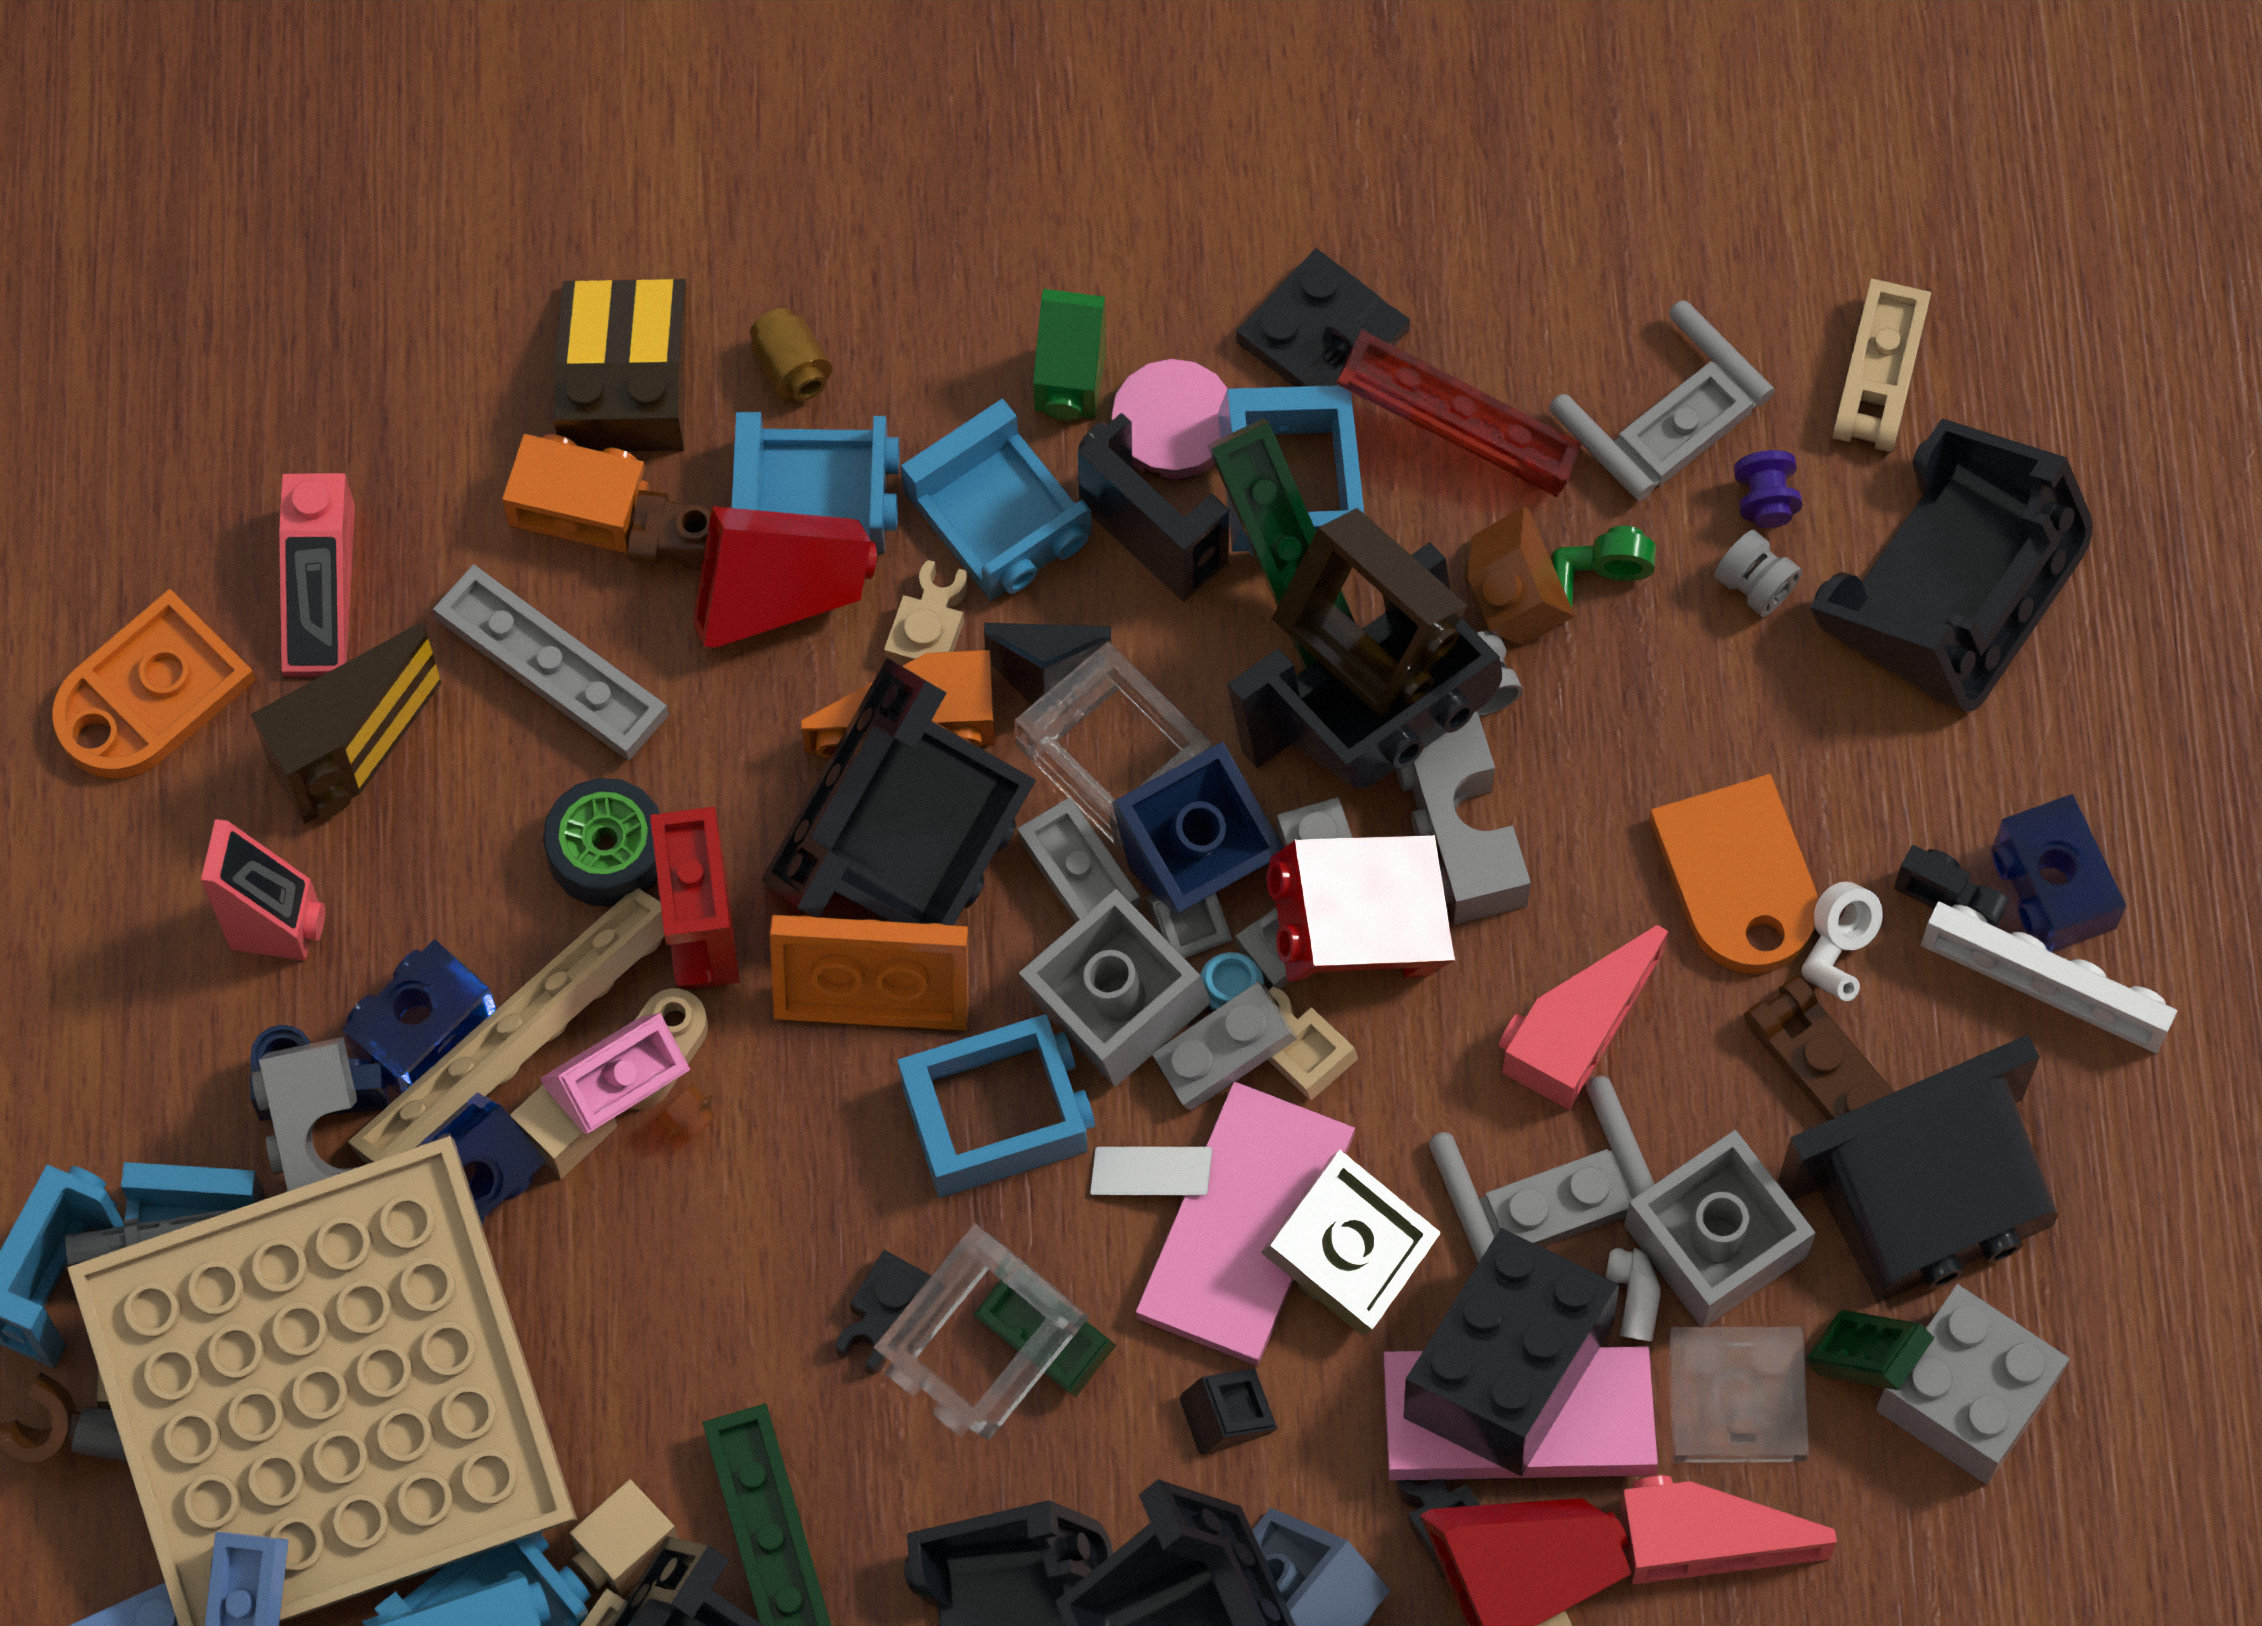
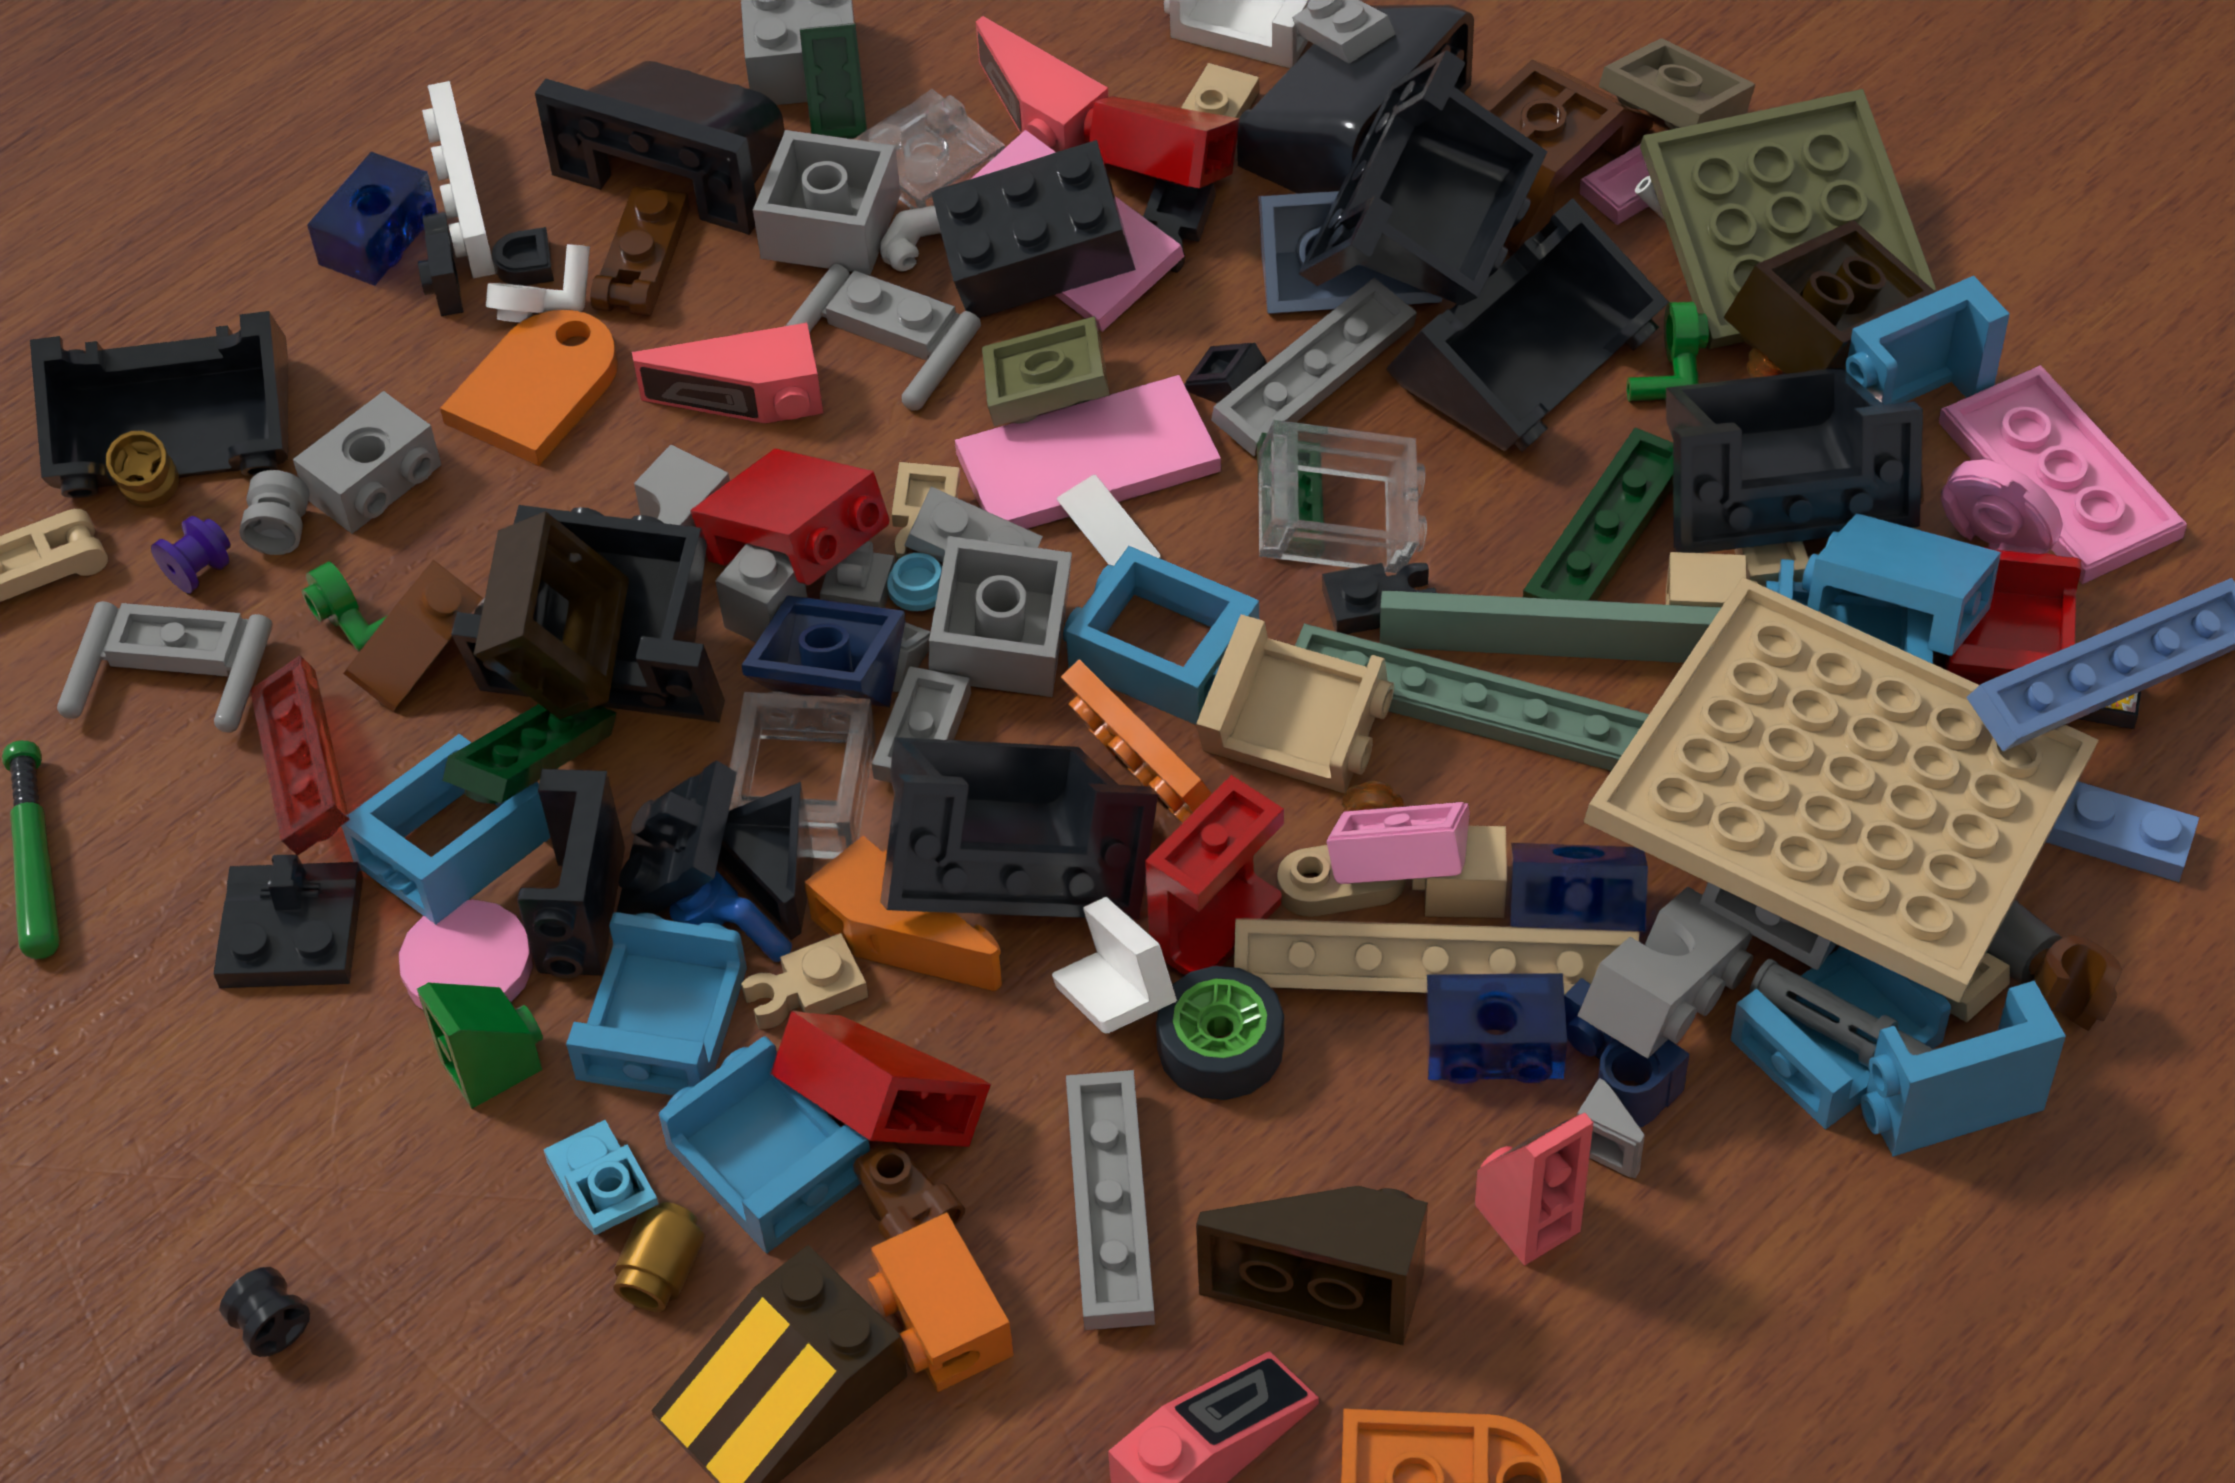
camera: 130 degrees left, 15 degrees down
(260, 1009) = (1615, 1135): none -> light grey slope
(693, 780) = (1123, 977): none -> white panel
(712, 1395) = (1542, 626): none -> sand green tile
(715, 1289) = (1490, 702): none -> sand green tile
(826, 1136) = (1293, 708): none -> tan panel
(887, 369) = (600, 1178): none -> medium azure slope
(984, 99) = (264, 1311): none -> black wheel
(1056, 597) = (719, 903): none -> blue plate
(1117, 599) = (676, 841): none -> black hinge
(1155, 1420) = (1315, 364): none -> light grey plate
(1550, 203) = (32, 869): none -> green piece
(1754, 640) = (368, 462): none -> light grey brick
(1894, 505) = (134, 457): none -> pearl gold wheel
(1909, 972) = (524, 257): none -> black tile

